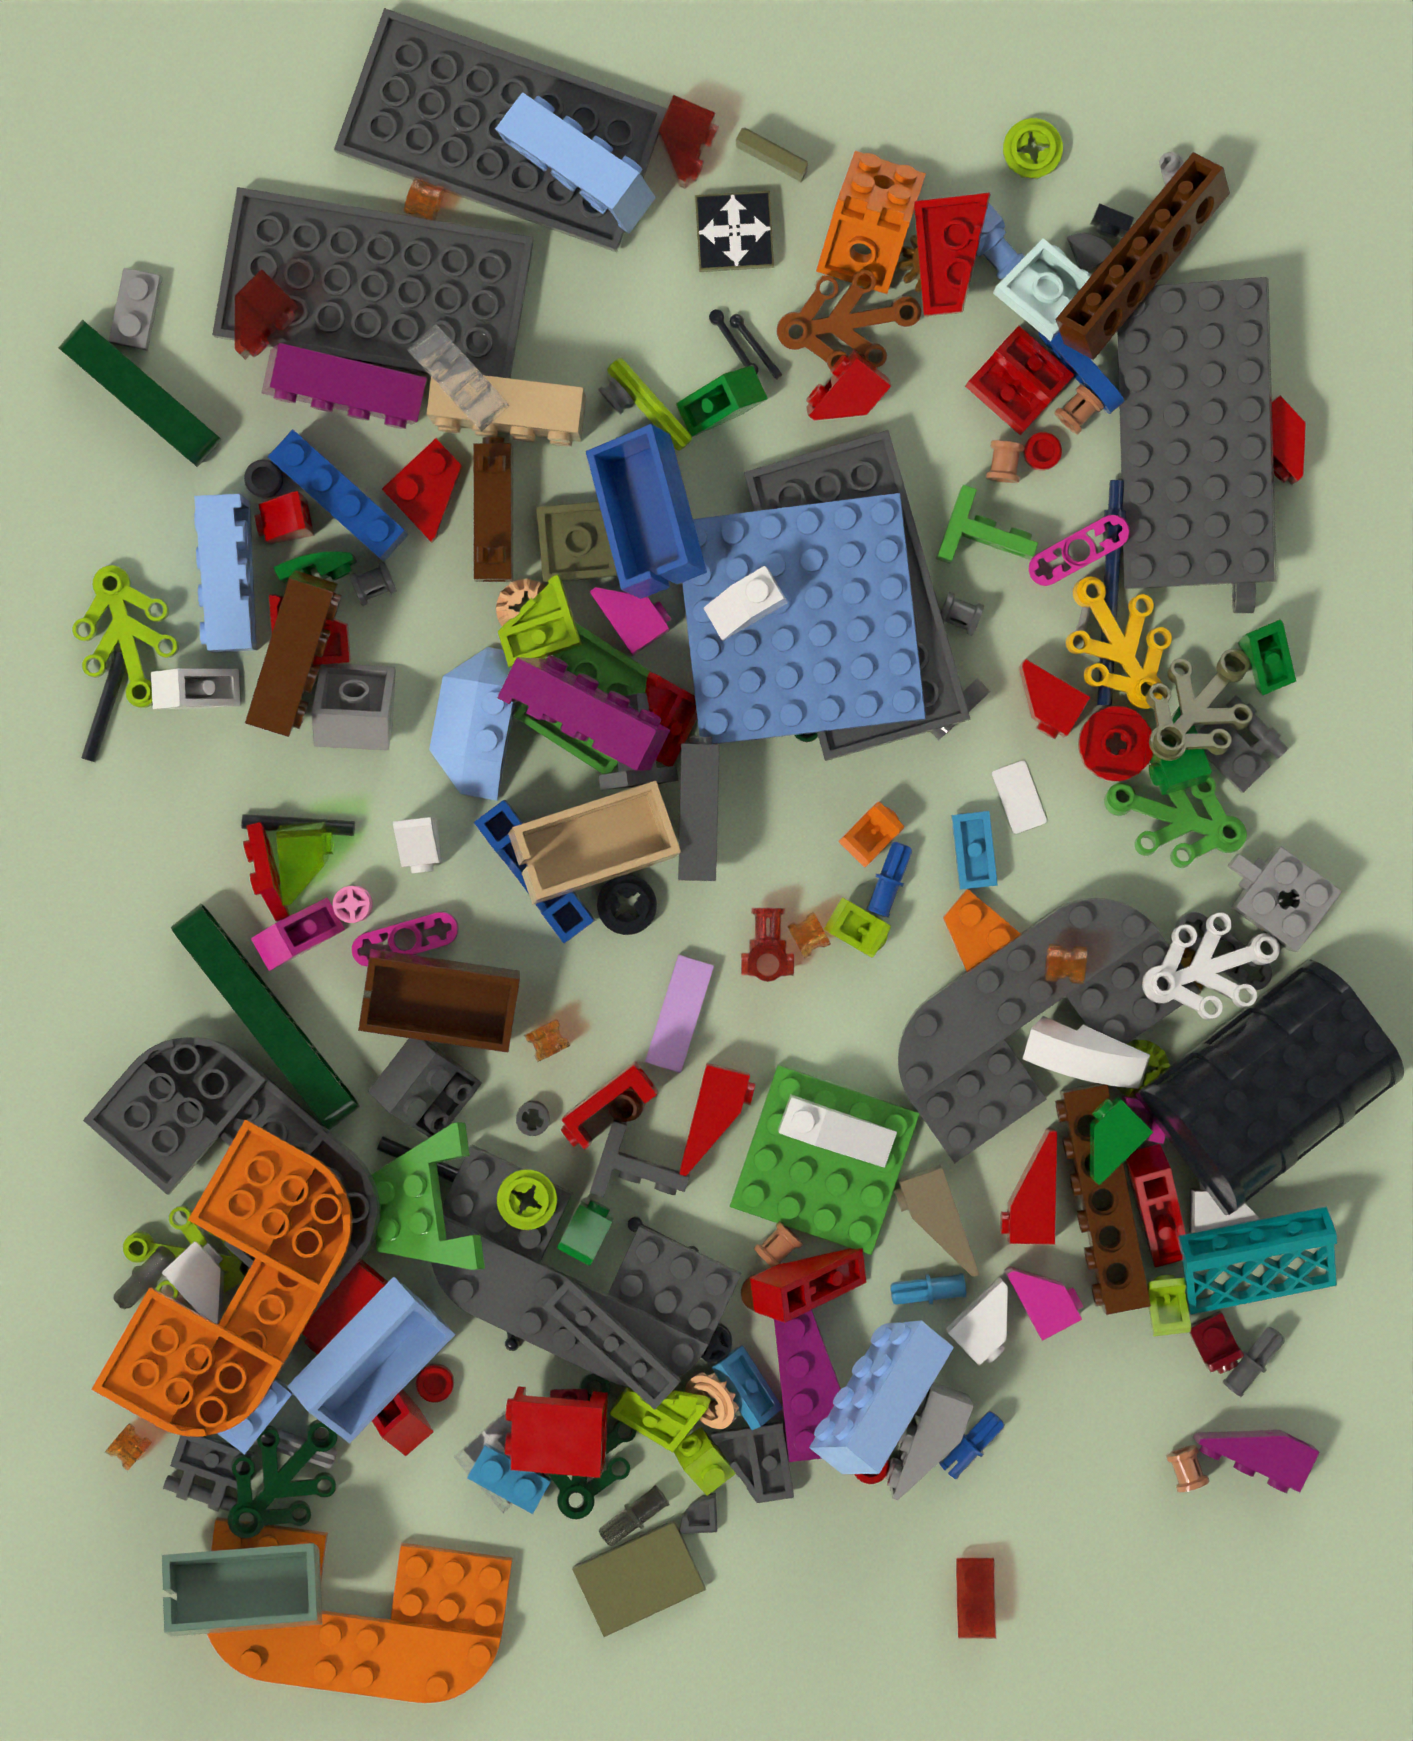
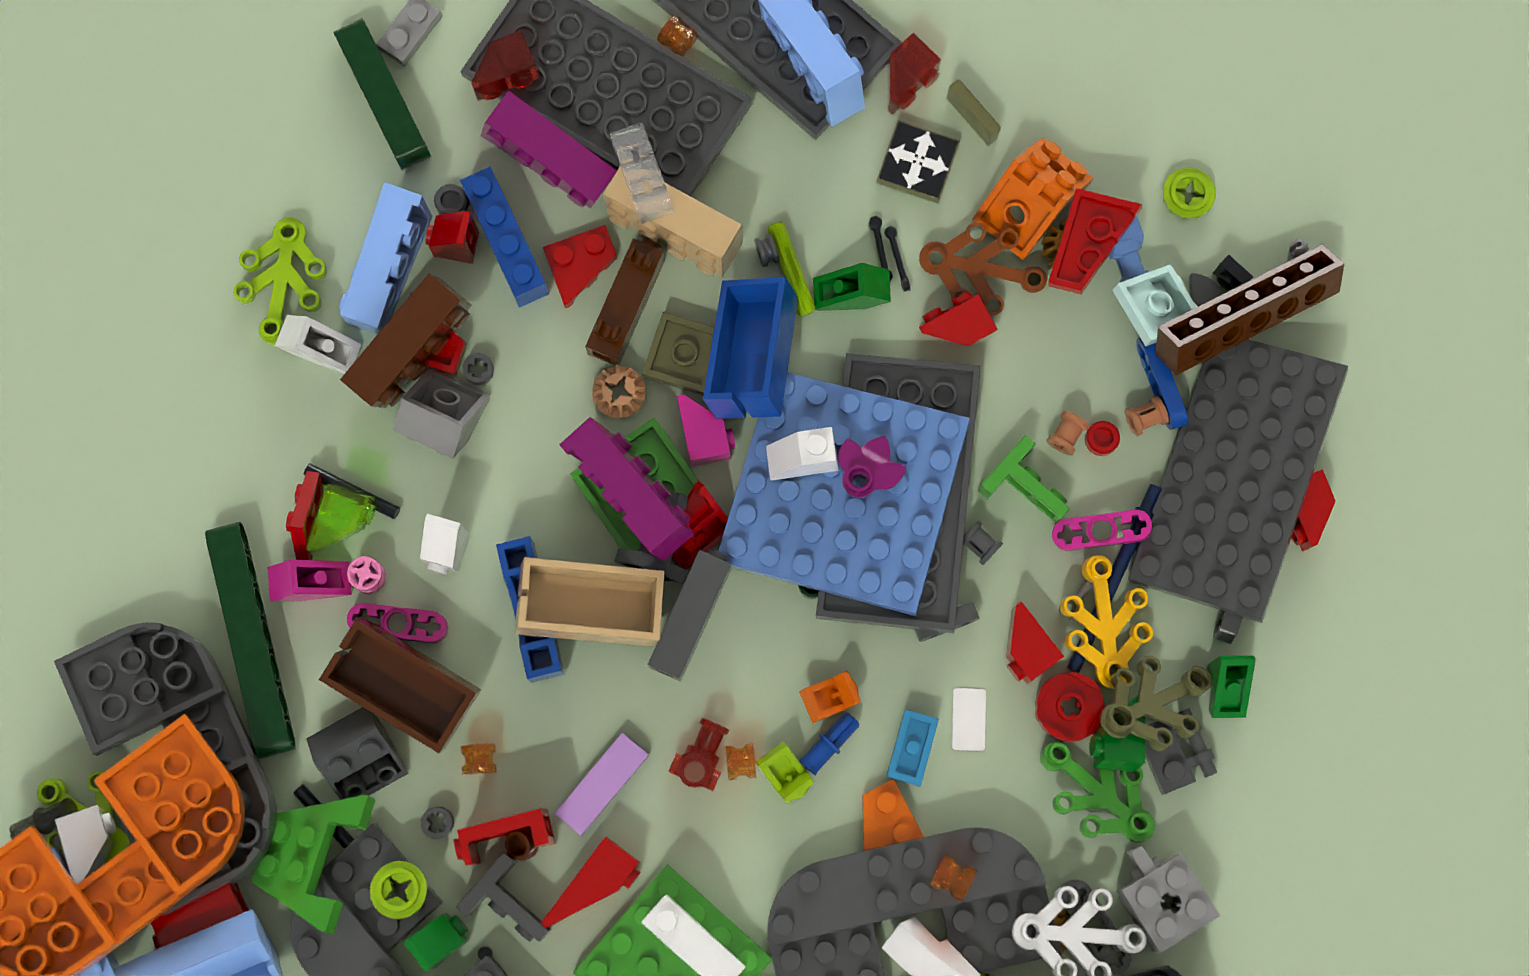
camera: 20 degrees right, 10 degrees down
(104, 708) = (237, 331): black bar -> none
(328, 564) = (472, 288): green slope -> none
(360, 640) = (471, 361): none -> dark grey bush
(372, 583) = (501, 319): dark grey bush -> none
(474, 724) = (532, 469): light blue wedge -> none
(541, 627) = (626, 407): lime wing -> none
(626, 923) = (581, 666): black gear -> none
(819, 583) = (870, 462): none -> magenta plate
(1019, 380) = (1105, 373): red slope -> none

